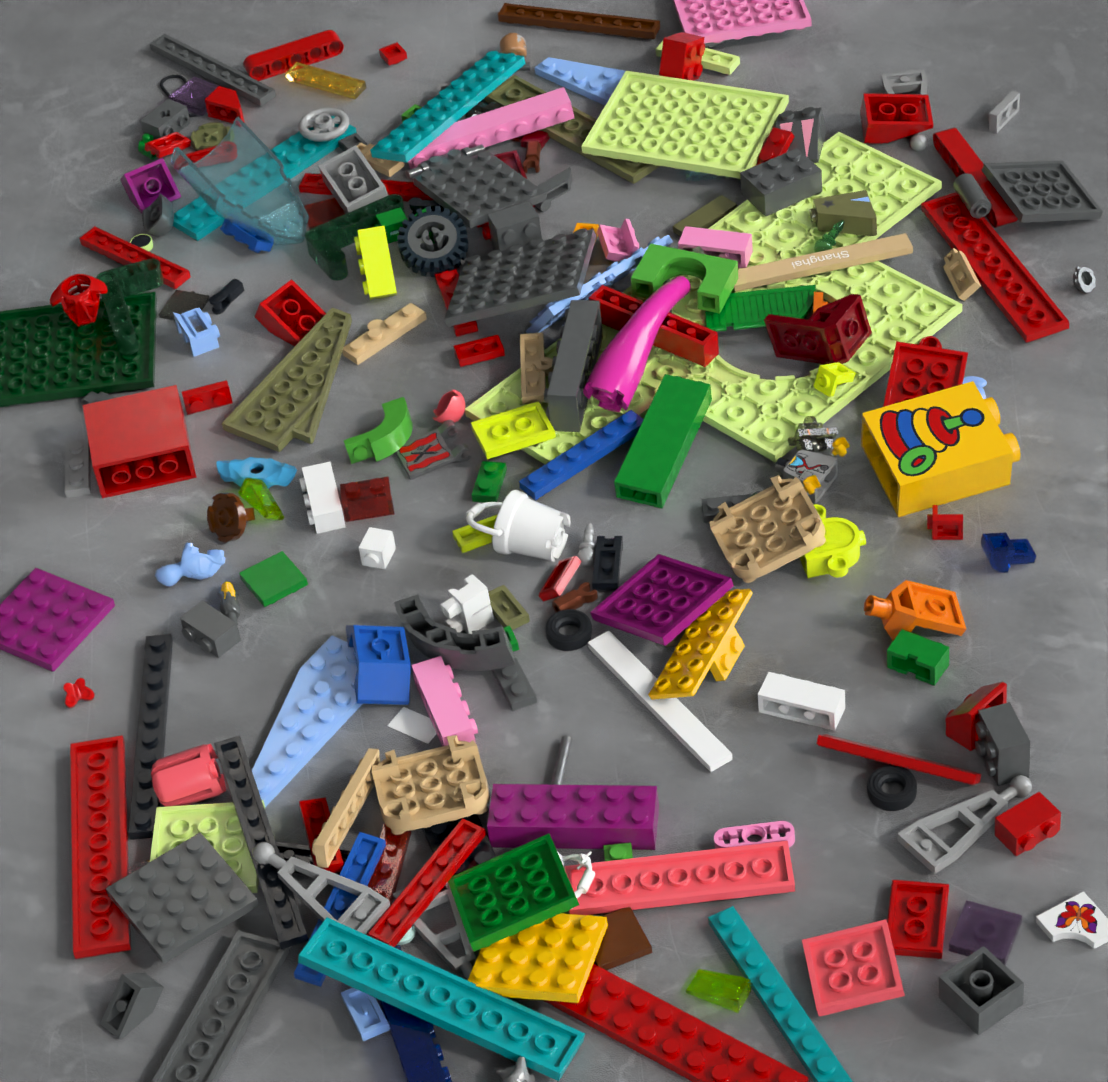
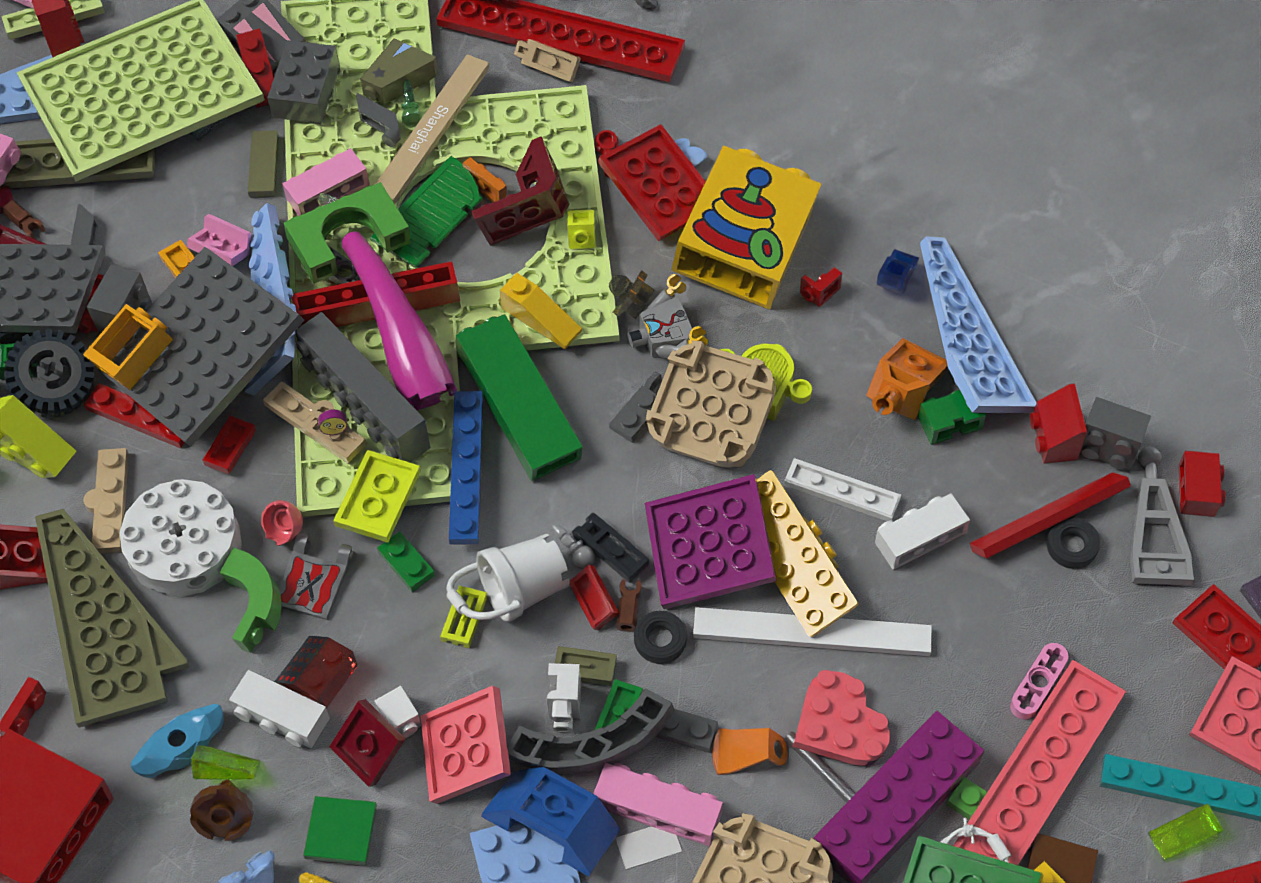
camera: 55 degrees left, 15 degrees up
(339, 546) = (367, 743): none -> dark red plate
(383, 586) = (465, 745): none -> coral plate
(389, 370) = (179, 537): none -> white brick
(483, 251) = (118, 334): none -> light orange window
(533, 719) = (743, 748): none -> orange piece
(535, 369) = (332, 422): none -> tile
(603, 751) = (839, 723): none -> coral plate
(739, 402) = (537, 310): none -> yellow slope
(790, 643) = (842, 490): none -> white tile
(800, 234) = (380, 119): none -> dark grey piece
(986, 630) = (970, 341): none -> light blue wing

